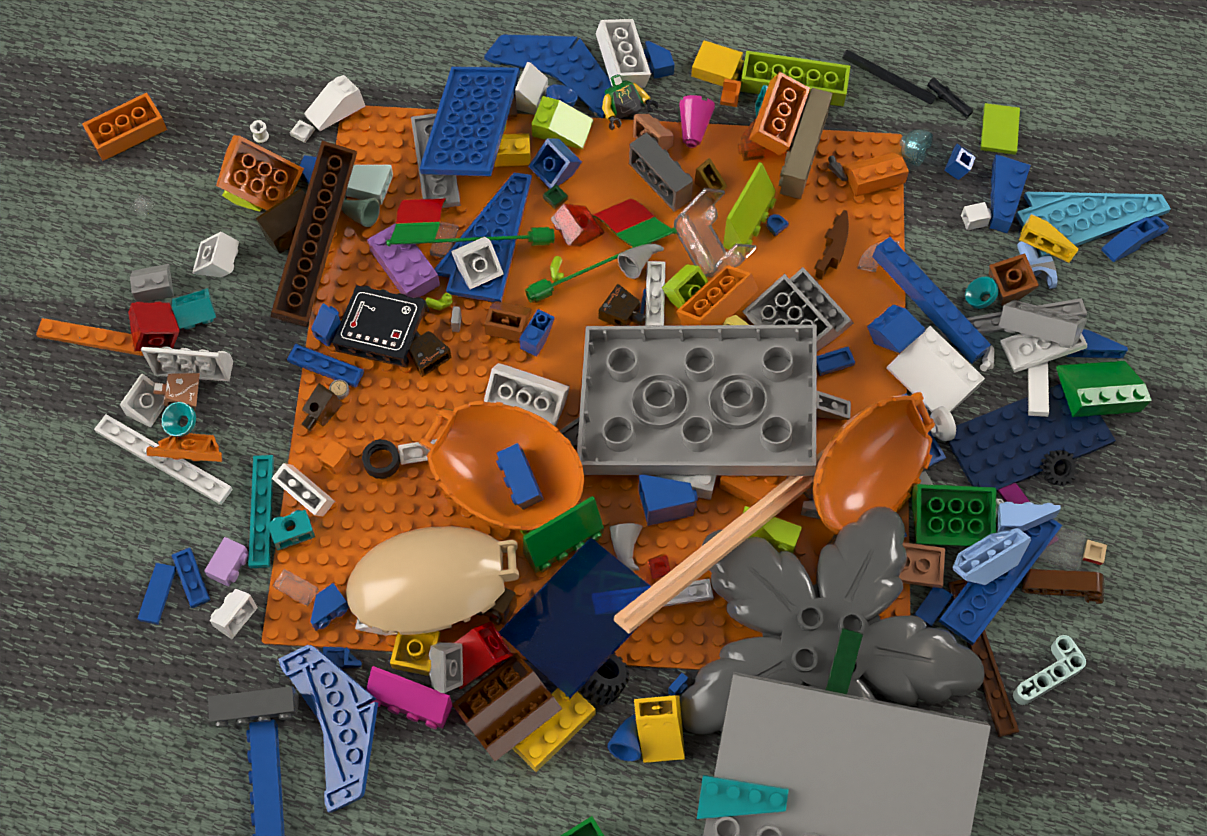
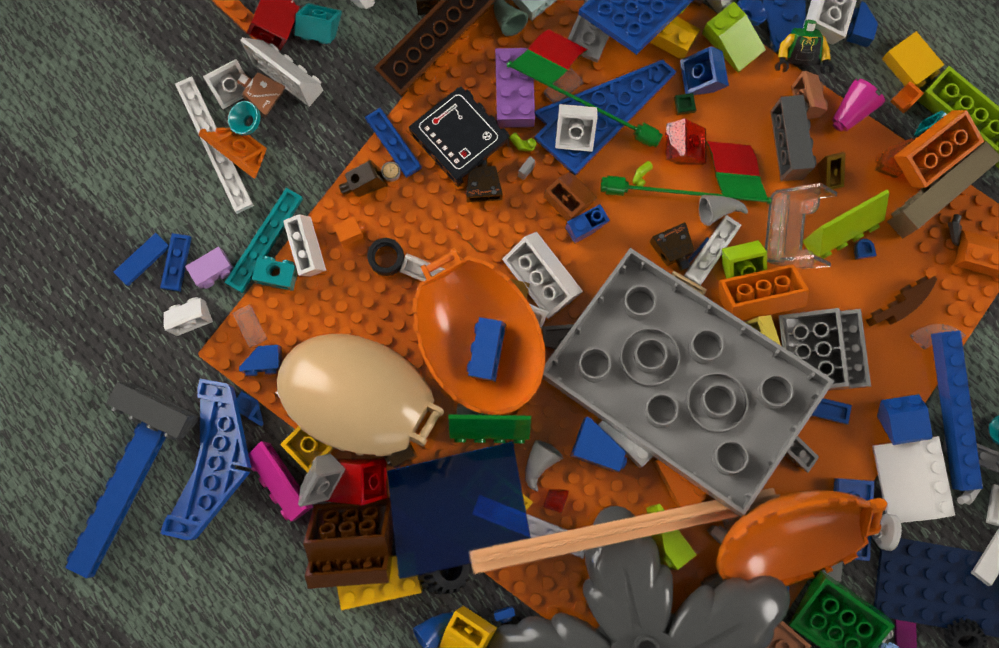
camera: 30 degrees right, 15 degrees up
(326, 324) = (413, 106): blue slope -> none

